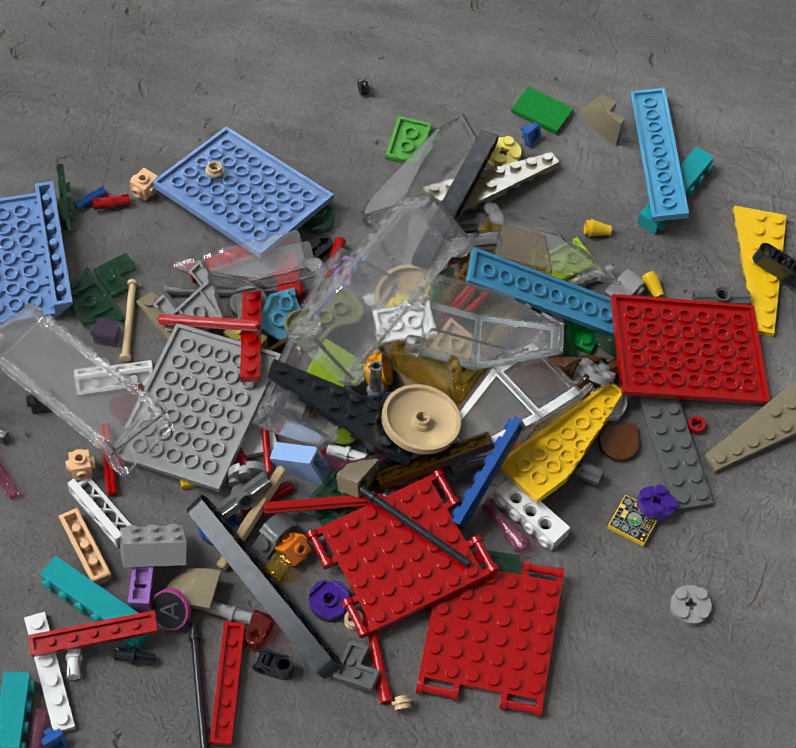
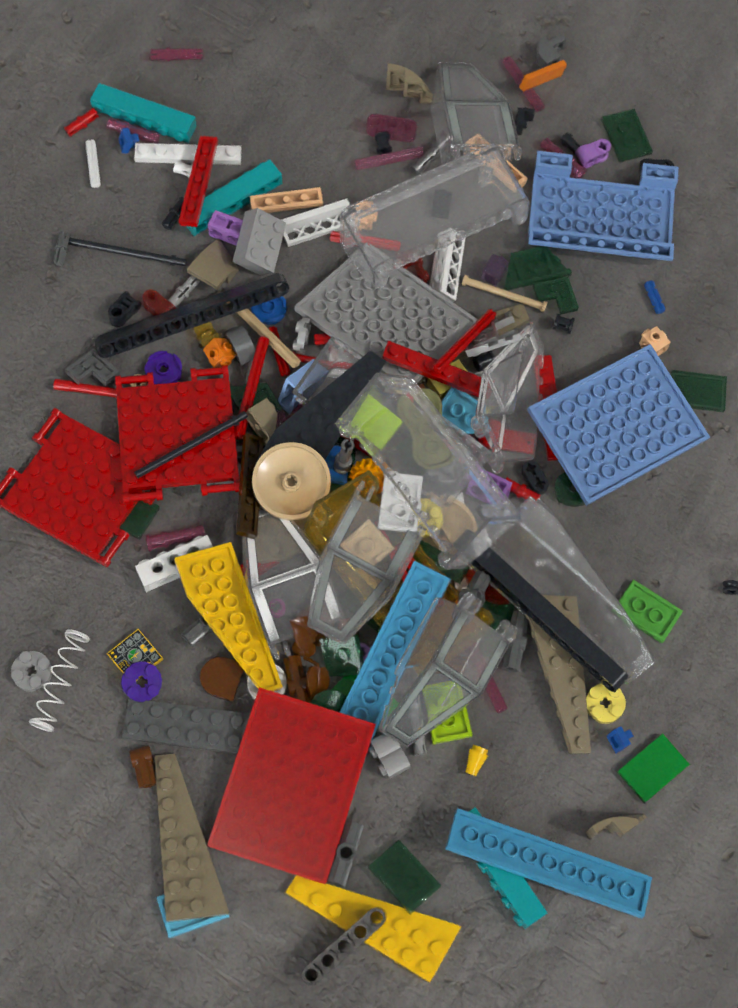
camera: 110 degrees right, 10 degrees up
(65, 201) = (657, 272): clear green wing -> none
(111, 201) = (644, 312): red pin -> none
(147, 262) = (563, 323): none -> black bush
(171, 609) = (197, 245): black tile -> none
(176, 142) = (702, 390): none -> clear green tile
(214, 169) = (651, 398): tan plate -> none
(227, 684) = (122, 271): red plate -> none
(244, 495) = (280, 323): dark grey piece -> none
(402, 702) = (47, 393): tan plate -> none
(484, 478) = (217, 523): blue plate -> none
(598, 373) = (297, 676): light grey plate -> none
(643, 579) = (36, 721): none -> white piece
(653, 284) = (387, 789): yellow cone -> none
(696, 419) = (216, 764): red bush -> none
(716, 253) = (404, 877): none -> clear green tile
(726, 477) = (142, 762): none -> reddish brown piece

